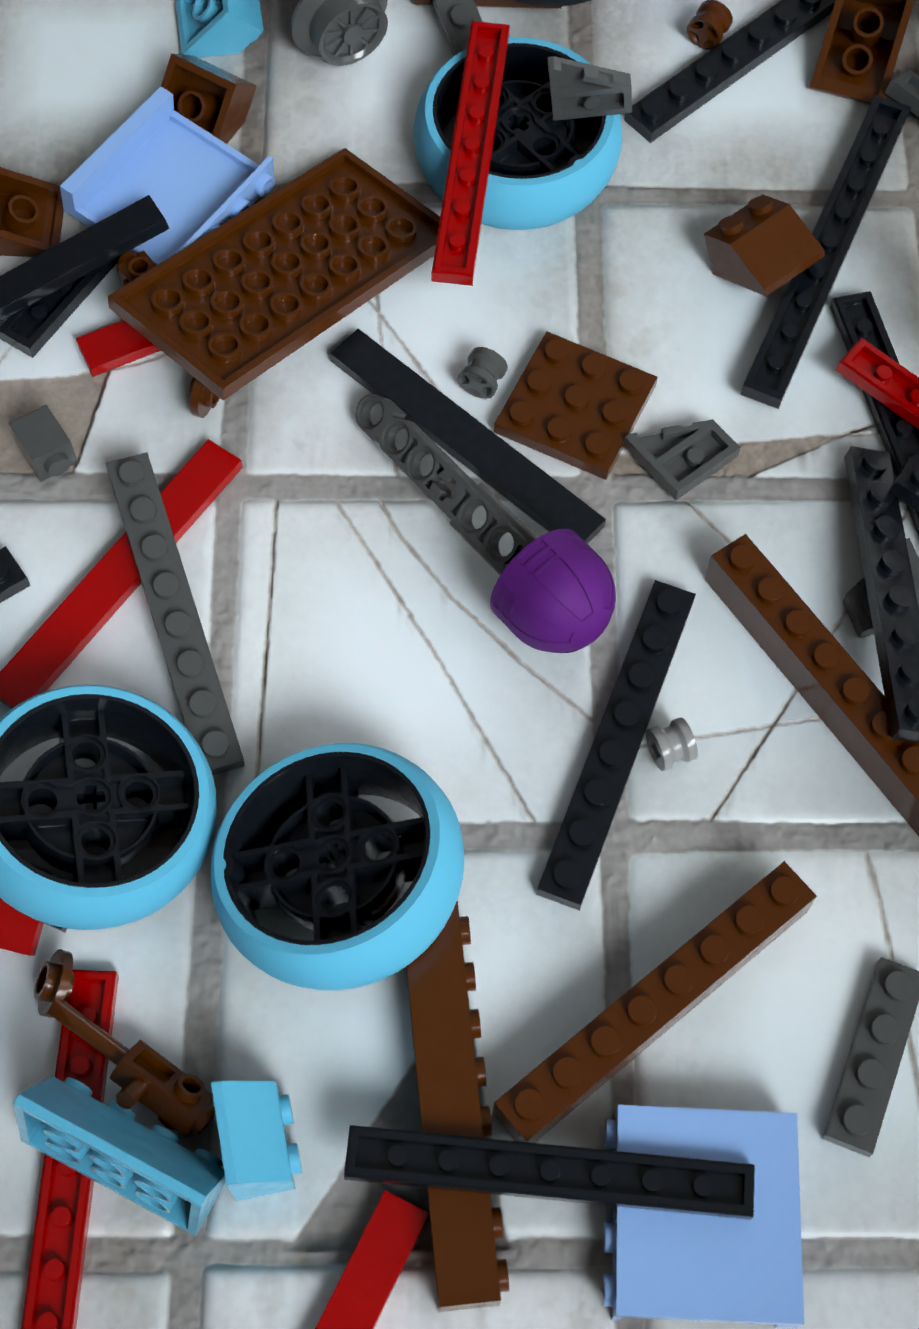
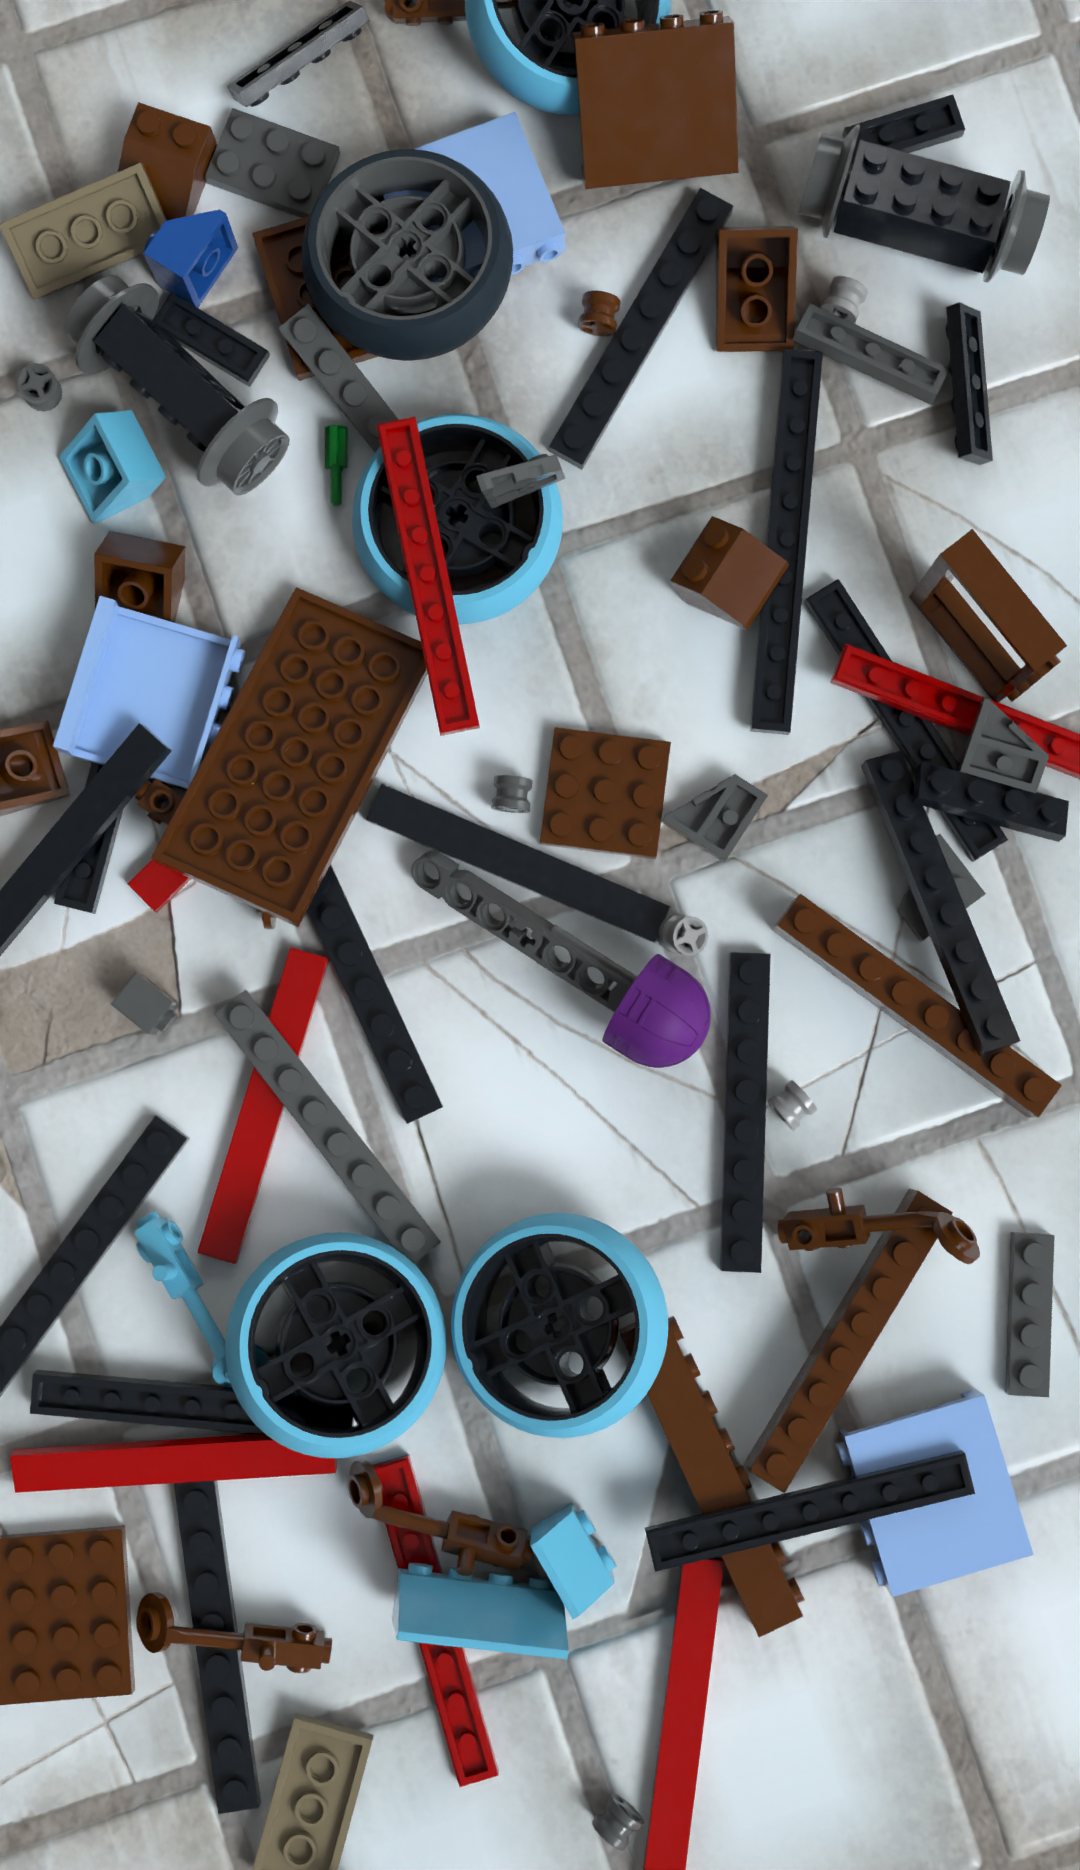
camera: 15 degrees left, 20 degrees up
(269, 509) = (372, 1000): none -> black plate
(424, 66) = (336, 459): none -> green axle
(617, 538) = (692, 938): none -> light grey wheel
(696, 876) = (848, 1226): none -> reddish brown piece

